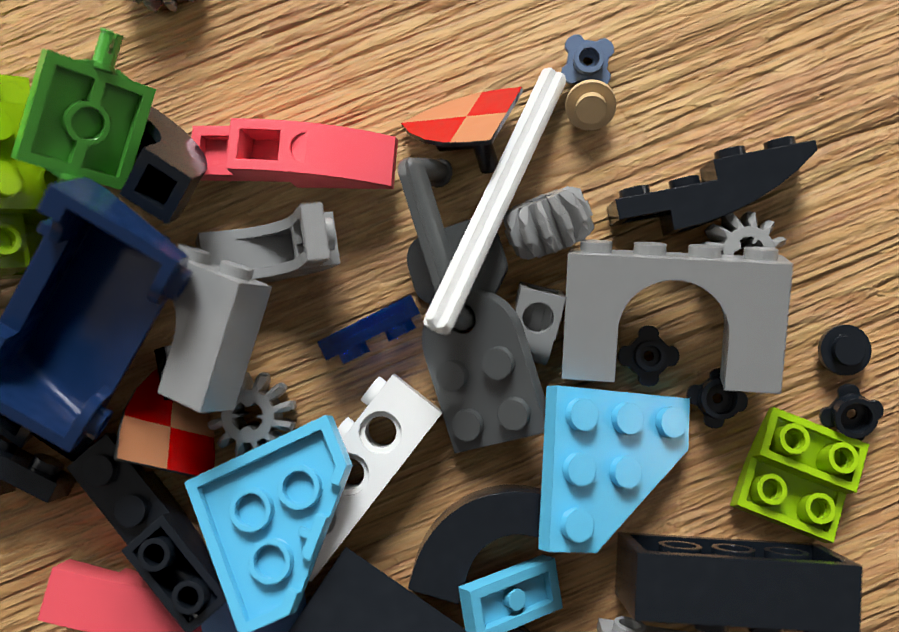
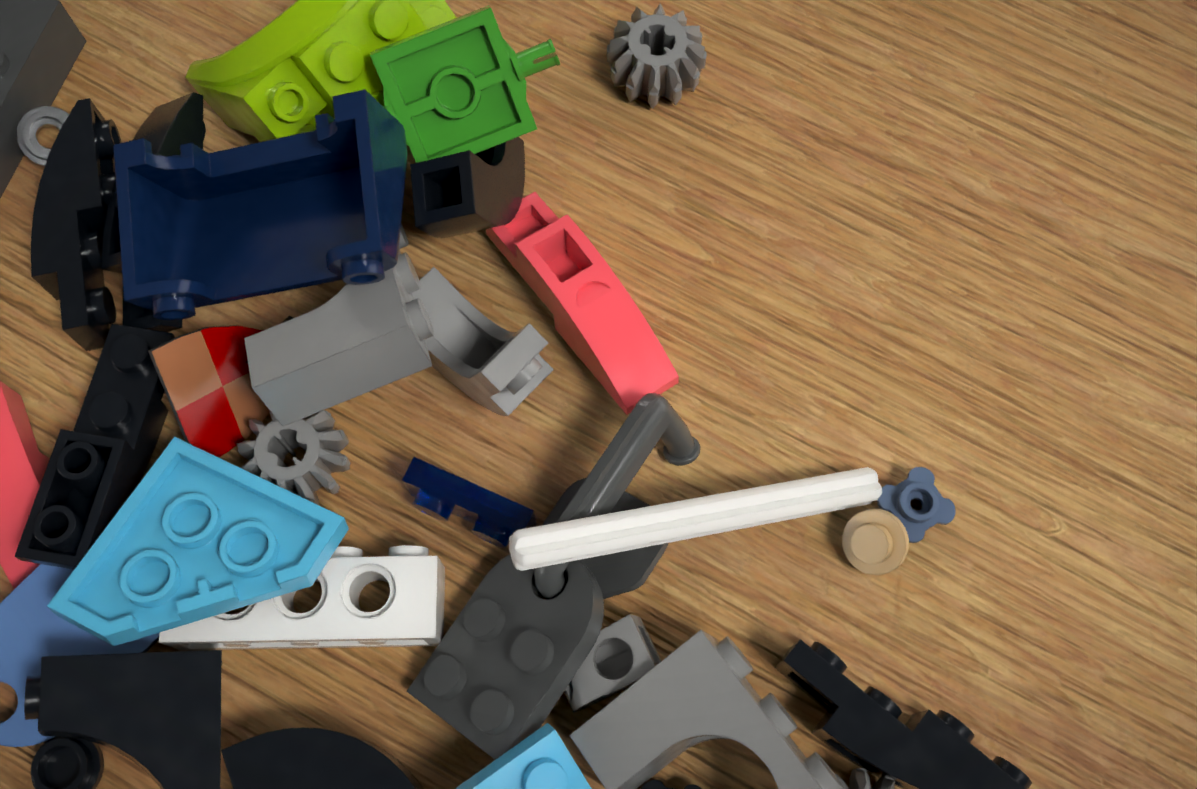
camera: 50 degrees right, 15 degrees down
(466, 124) = (749, 434): shield -> none
(548, 223) = (719, 592): light grey gear -> none

